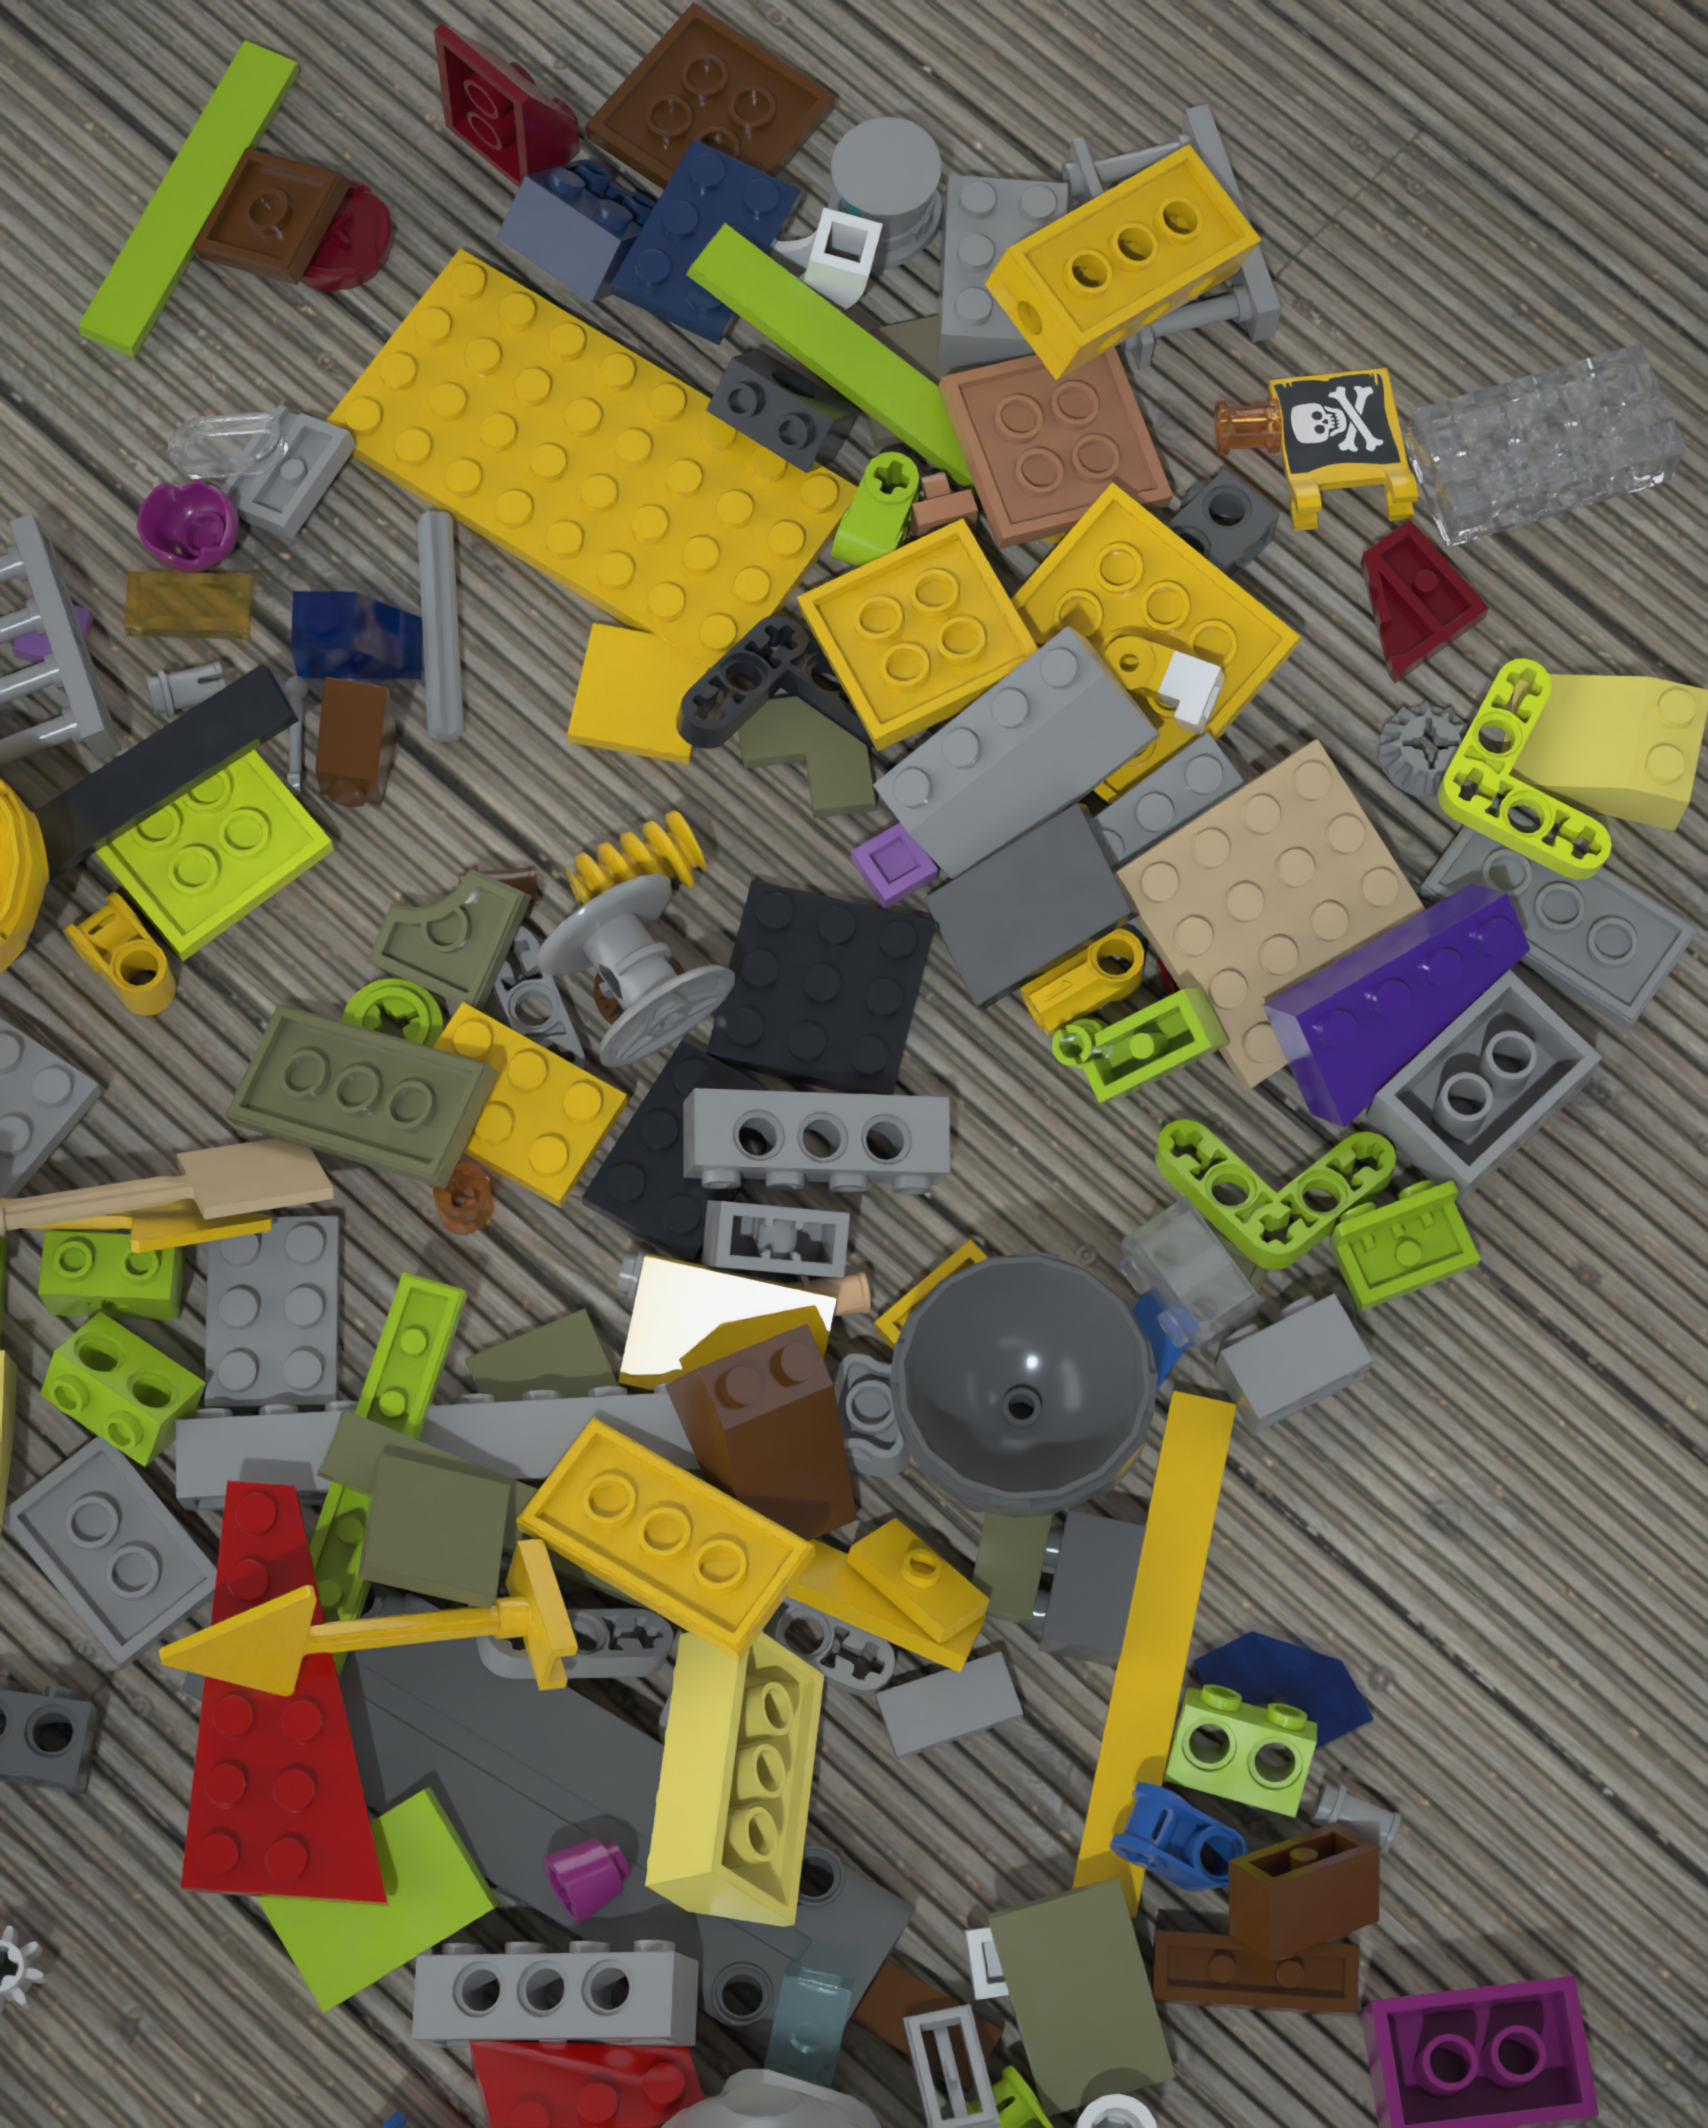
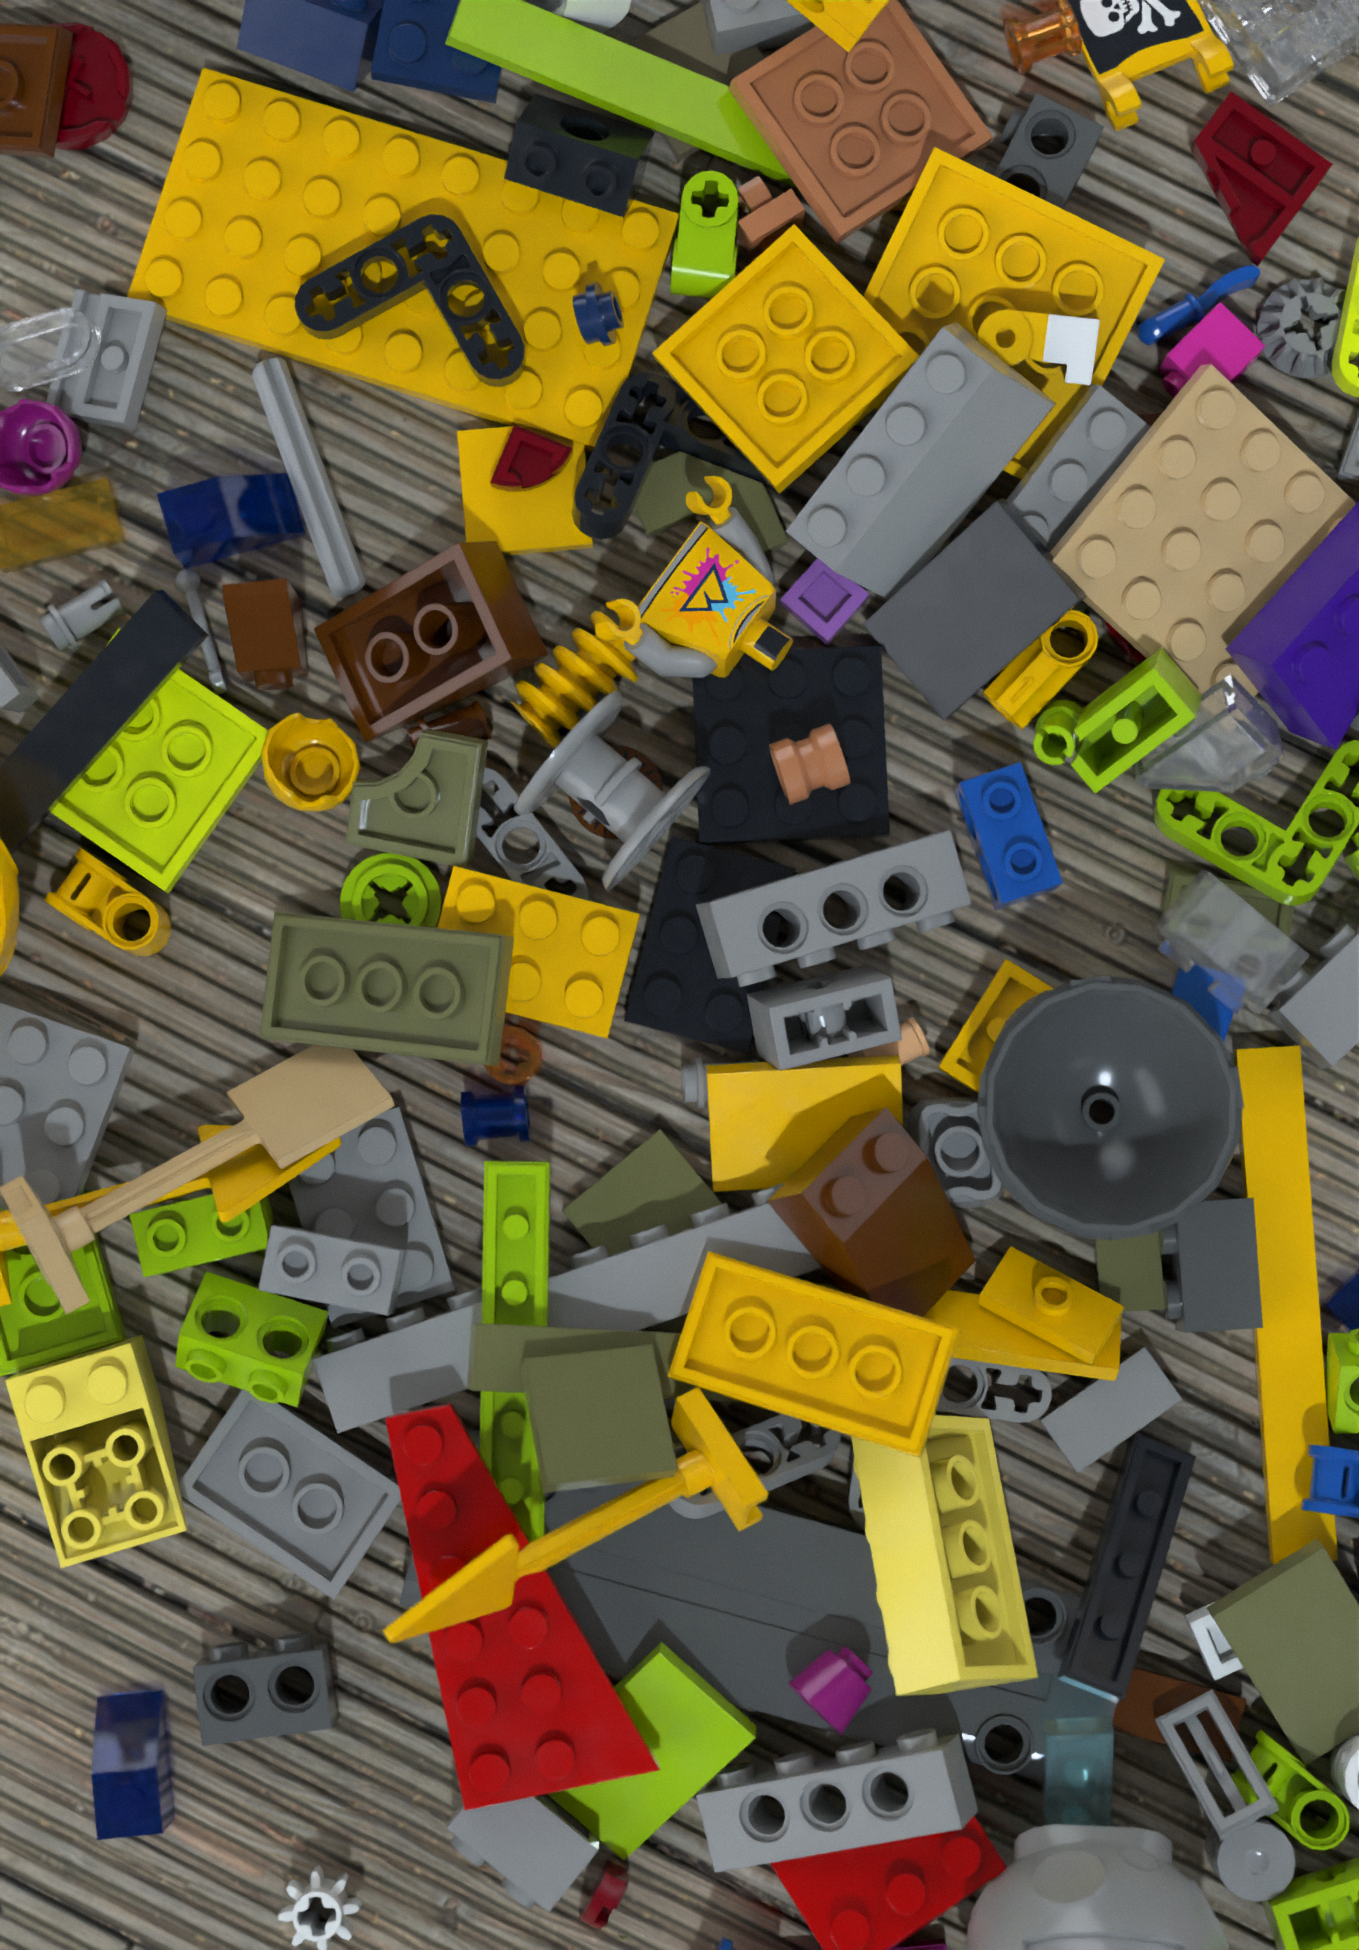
camera: 10 degrees left, 15 degrees up
(224, 1337) = (332, 1269): none -> light grey brick
(233, 1955) = (529, 1843): none -> light grey brick
(291, 2044) = (605, 1895): none -> dark red tile
(355, 875) = (309, 763): none -> yellow hair
(428, 1250) = (495, 1116): none -> clear blue bush
(508, 796) = (430, 638): none -> reddish brown slope
(614, 477) = (436, 276): none -> black beam
(651, 665) = (529, 461): none -> dark red tile
(755, 549) = (598, 314): none -> dark blue plate
(778, 829) = (707, 600): none -> torso
(832, 1000) = (809, 764): none -> nougat wheel
(917, 1855) = (1126, 1568): none -> black tile
(1005, 1126) = (1007, 836): none -> blue brick
(1227, 1093) = (1219, 748): none -> clear slope
(1340, 734) = (1217, 341): none -> dark pink brick
(1353, 693) = (1193, 309): none -> blue piece

